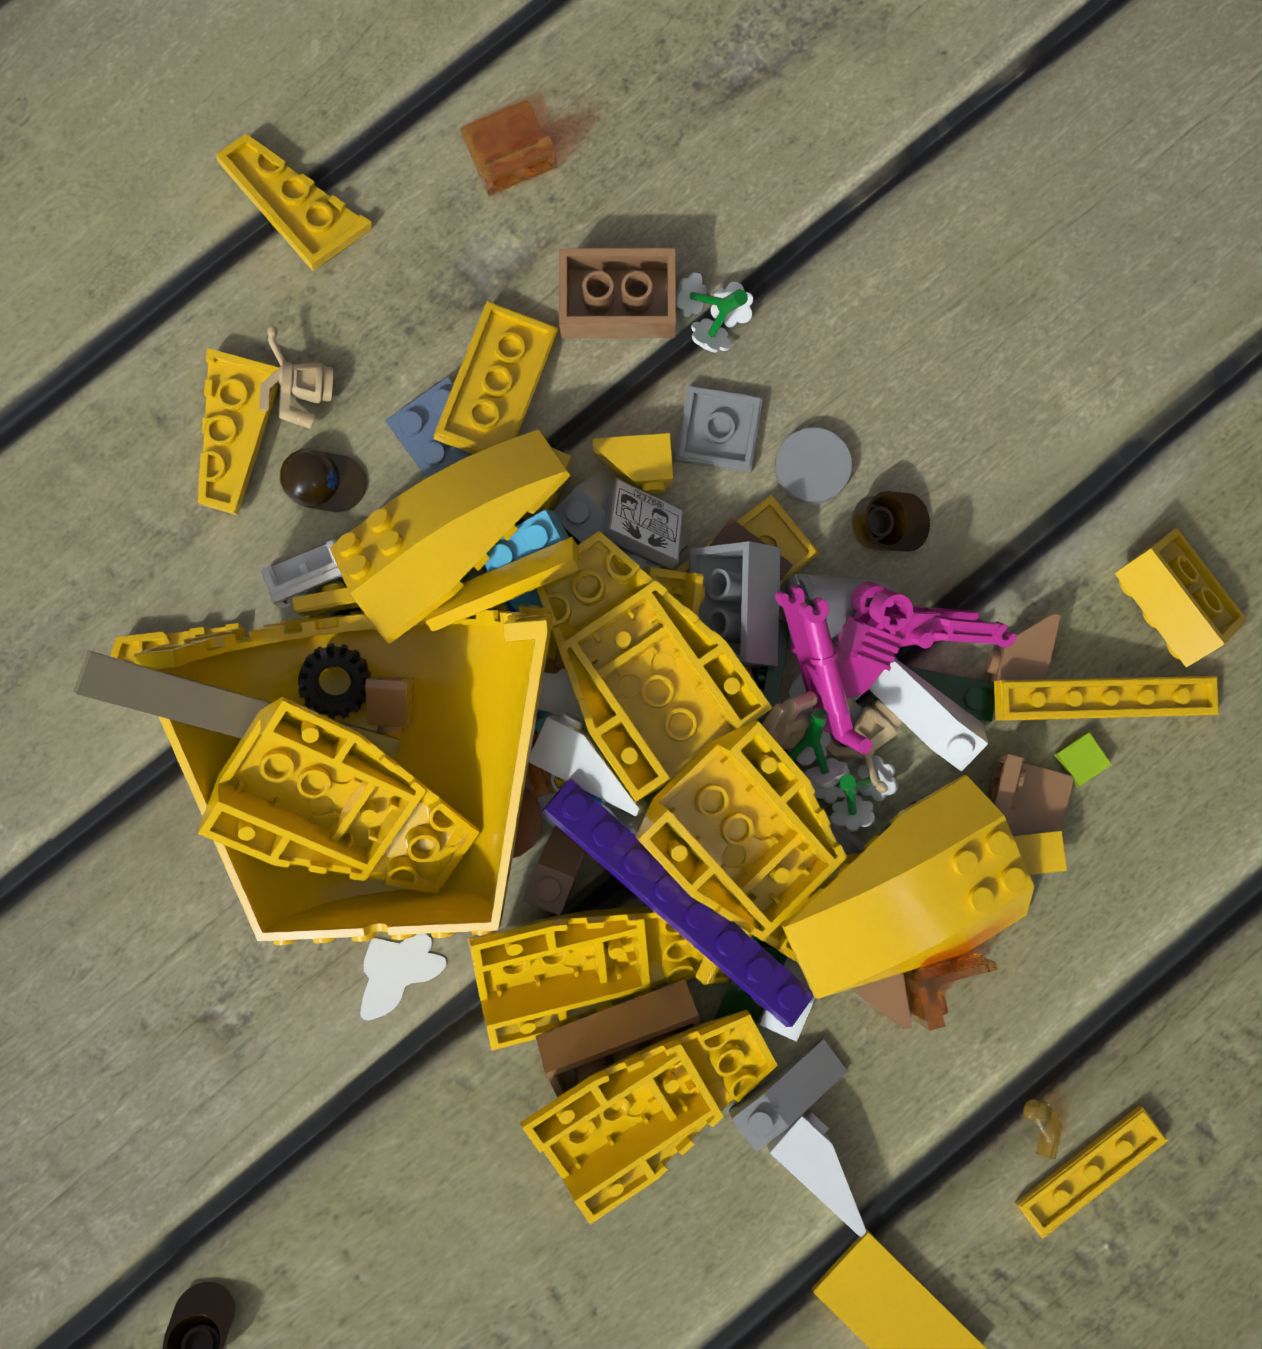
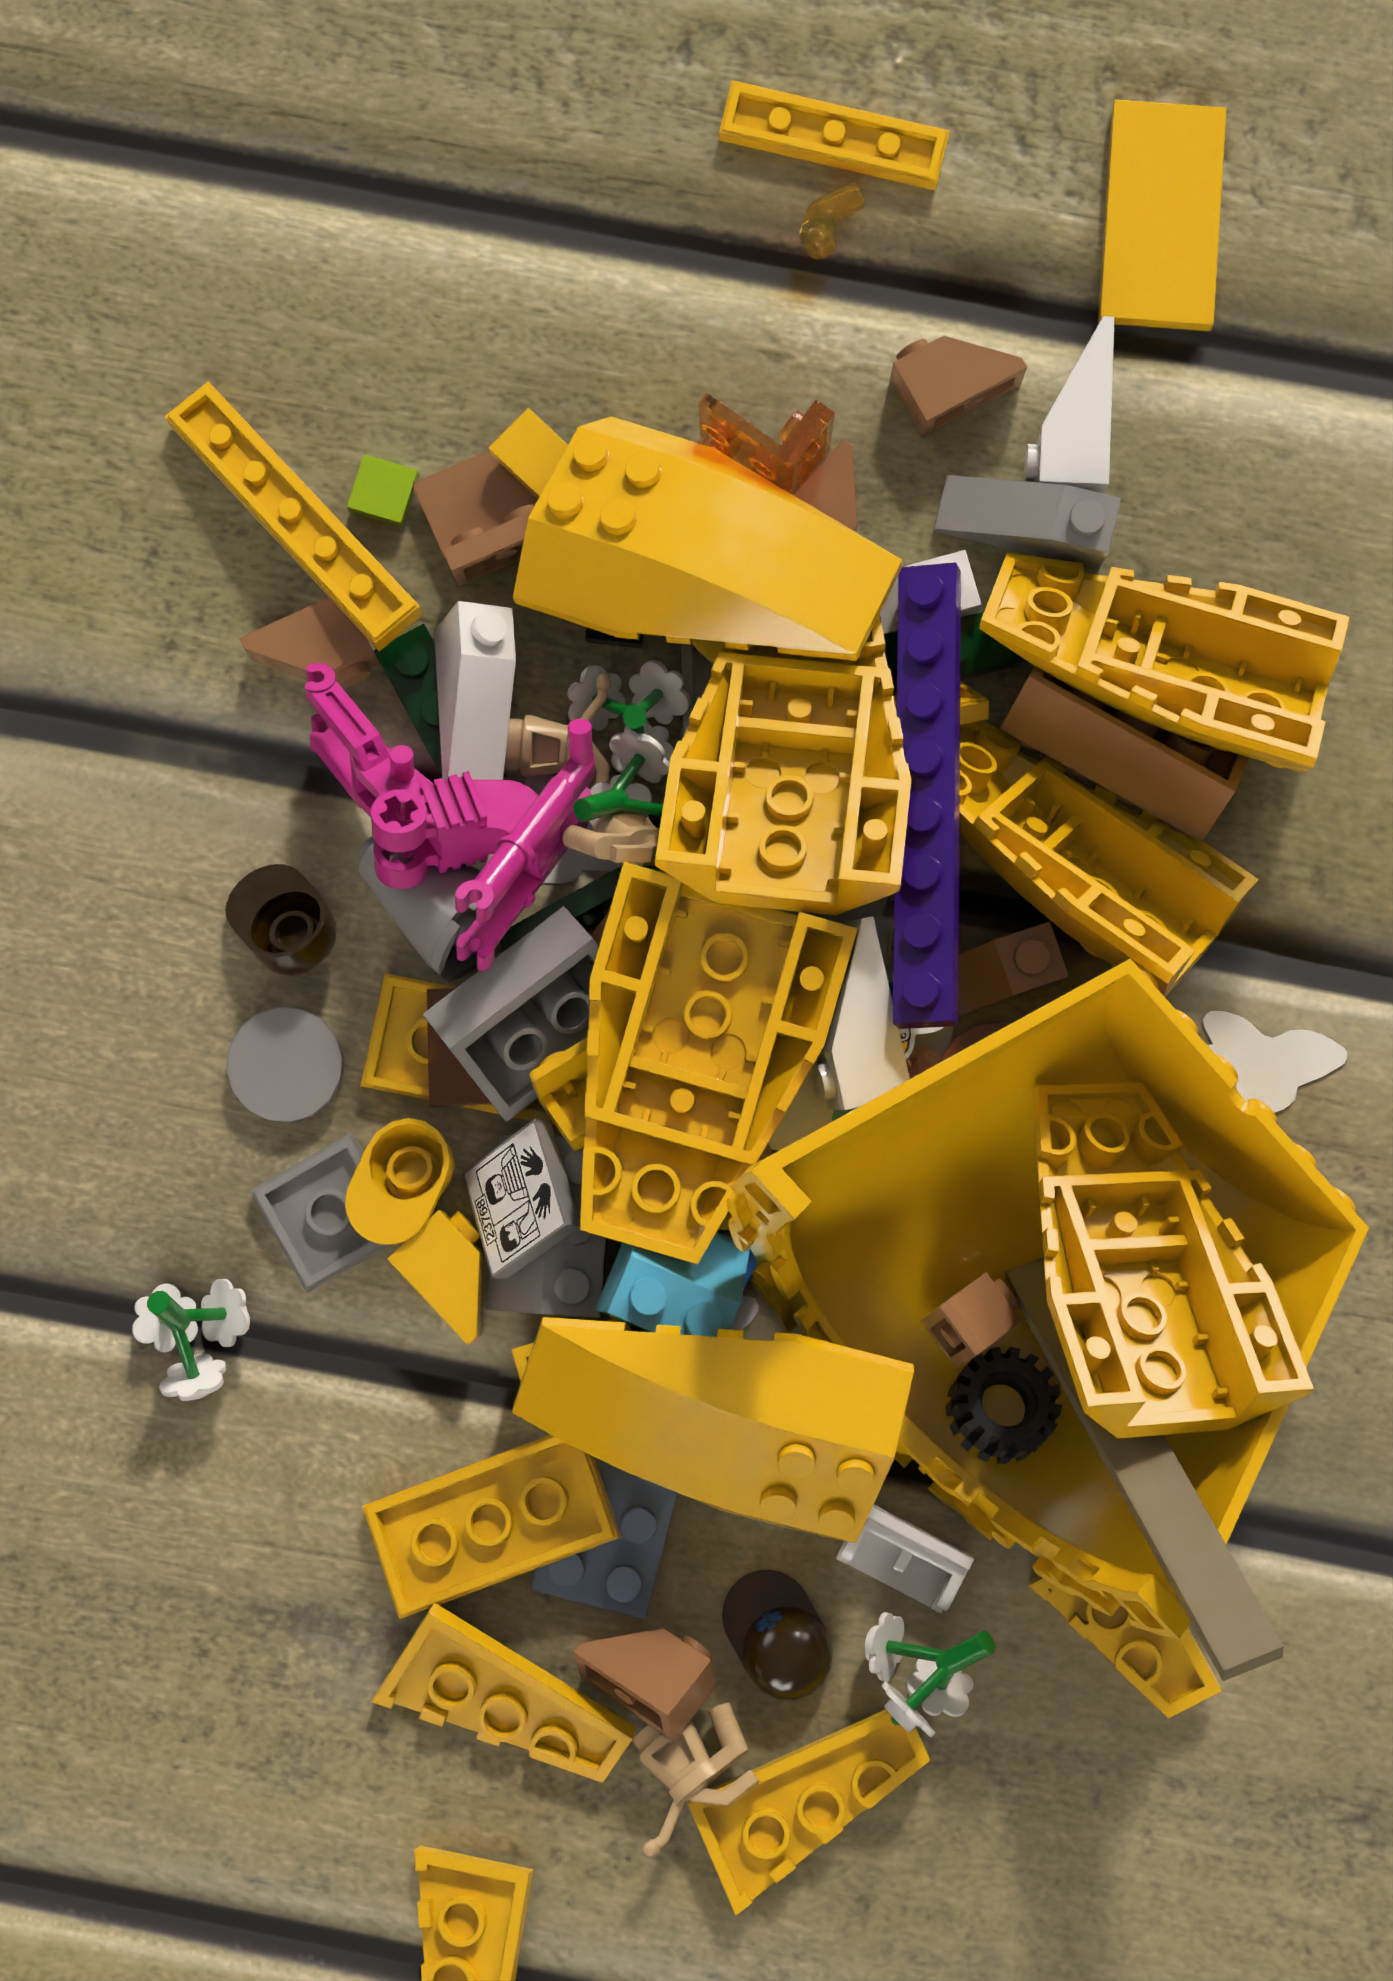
camera: 130 degrees left, 0 degrees up
(230, 535) = (937, 1677): none -> white plant
(331, 599) = (909, 1497): yellow plate -> none
(353, 399) = (650, 1676): none -> medium nougat slope
(427, 313) = (483, 1686): none -> yellow wing
(507, 583) = (728, 1281): yellow tile -> none
(509, 148) = (183, 1758): clear orange bracket -> none
(617, 293) = (263, 1464): medium nougat brick -> none
(704, 471) = (399, 1181): none -> yellow cap
(898, 1117) = (951, 379): none -> medium nougat slope
(1181, 598) = (104, 523): yellow slope -> none

